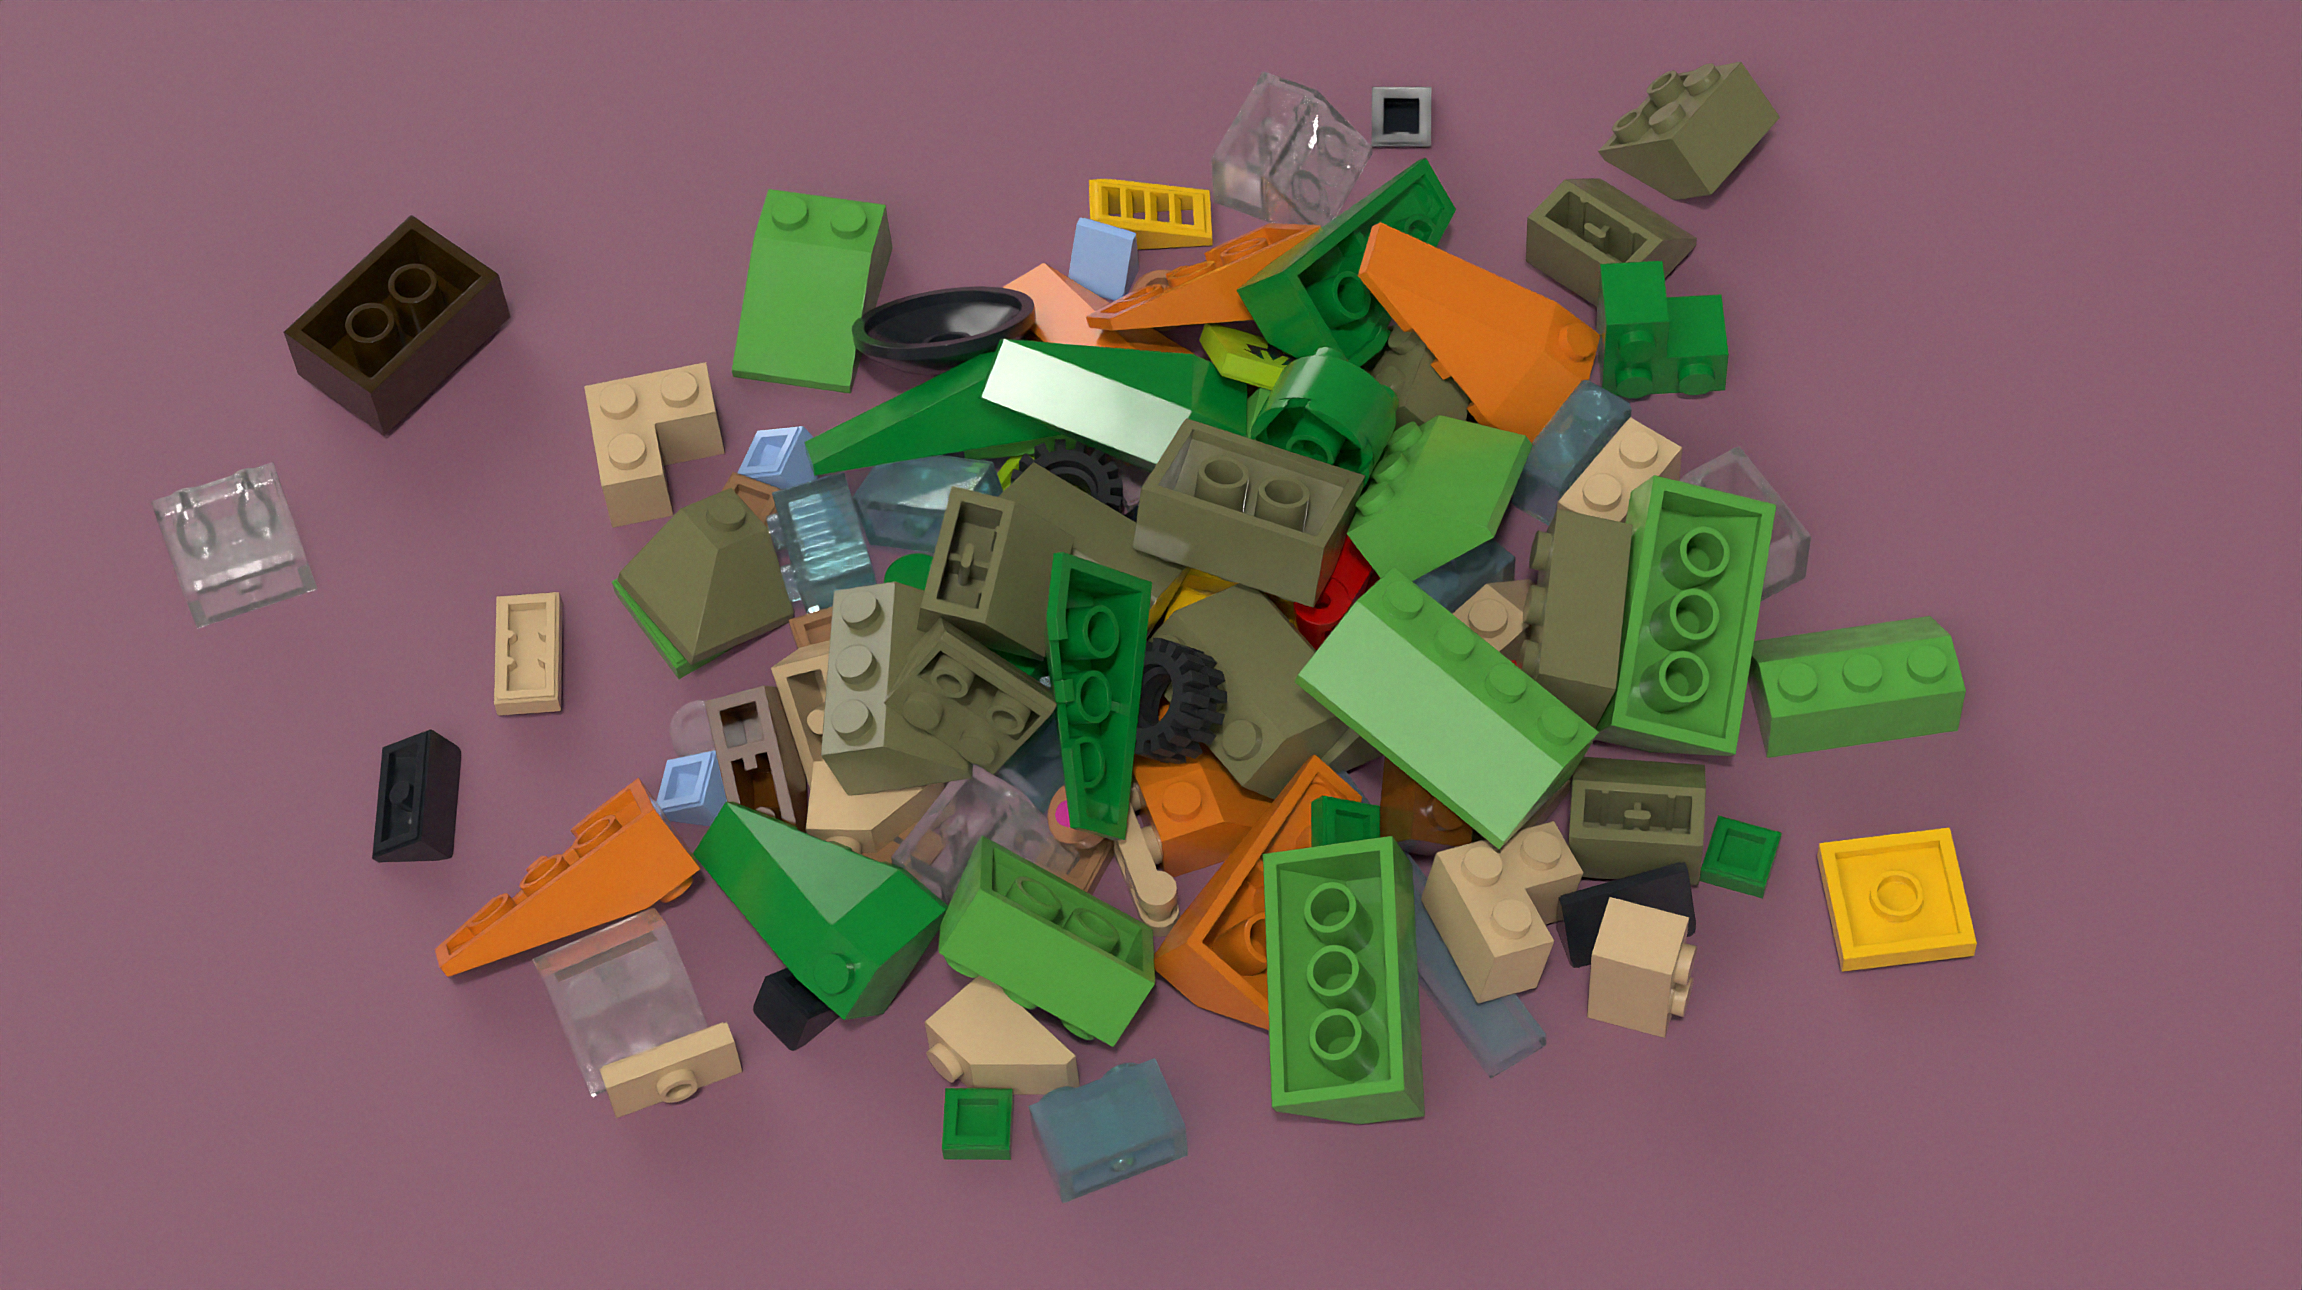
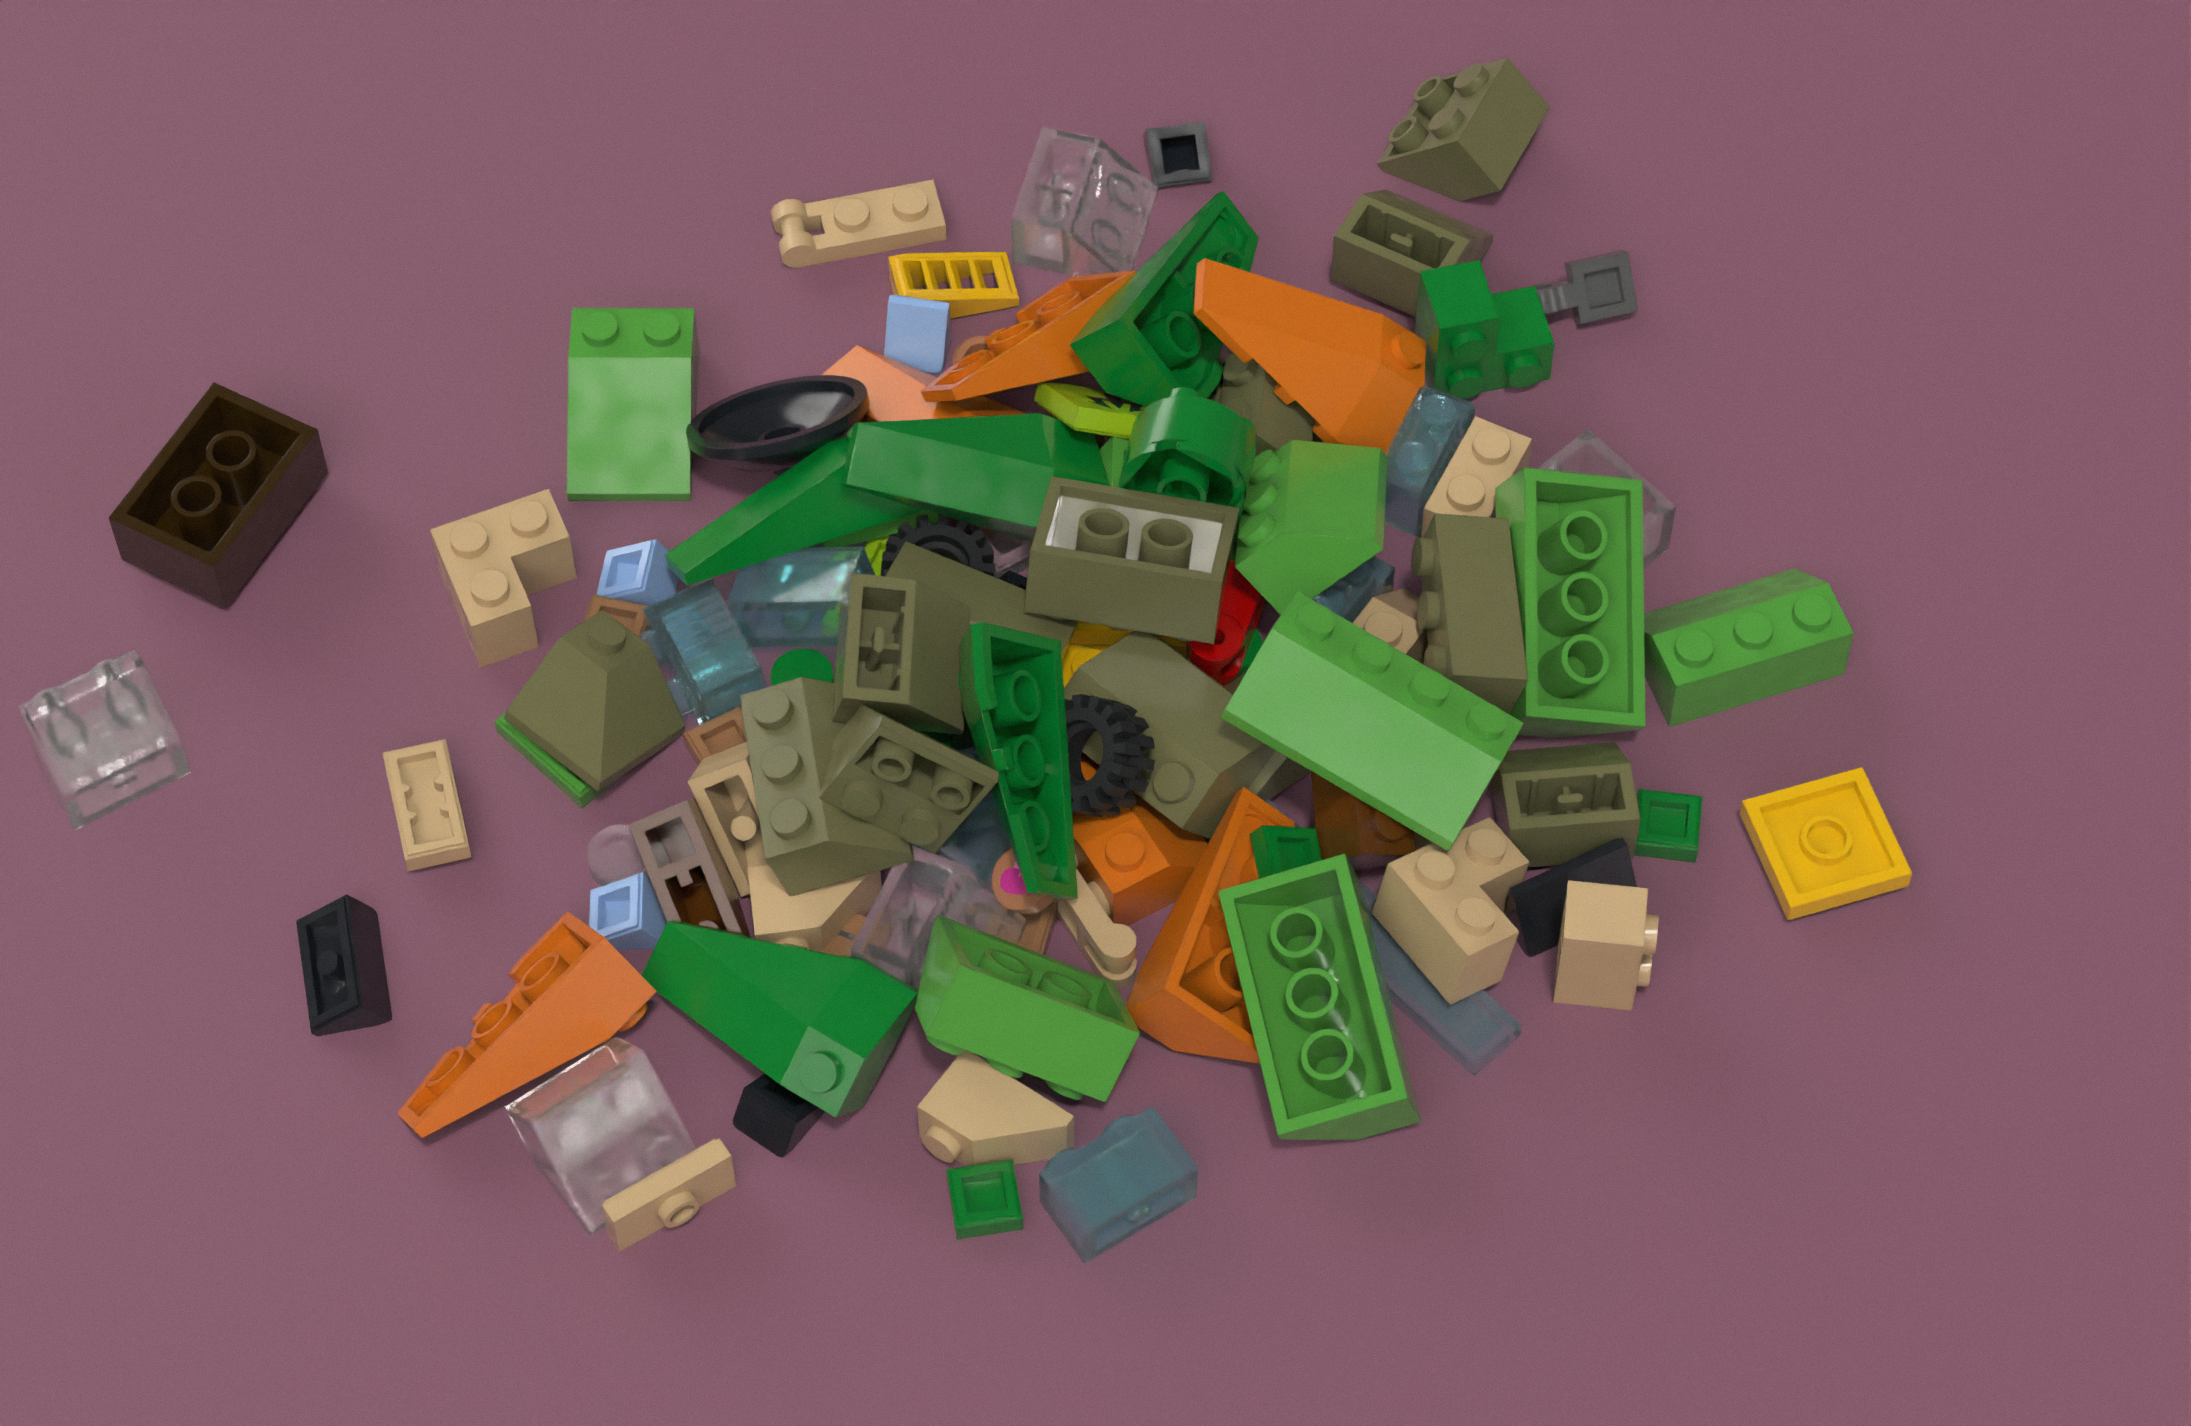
camera: 15 degrees left, 0 degrees up
(1072, 144) = (858, 224): none -> tan plate
(1787, 305) = (1594, 288): none -> dark grey plate

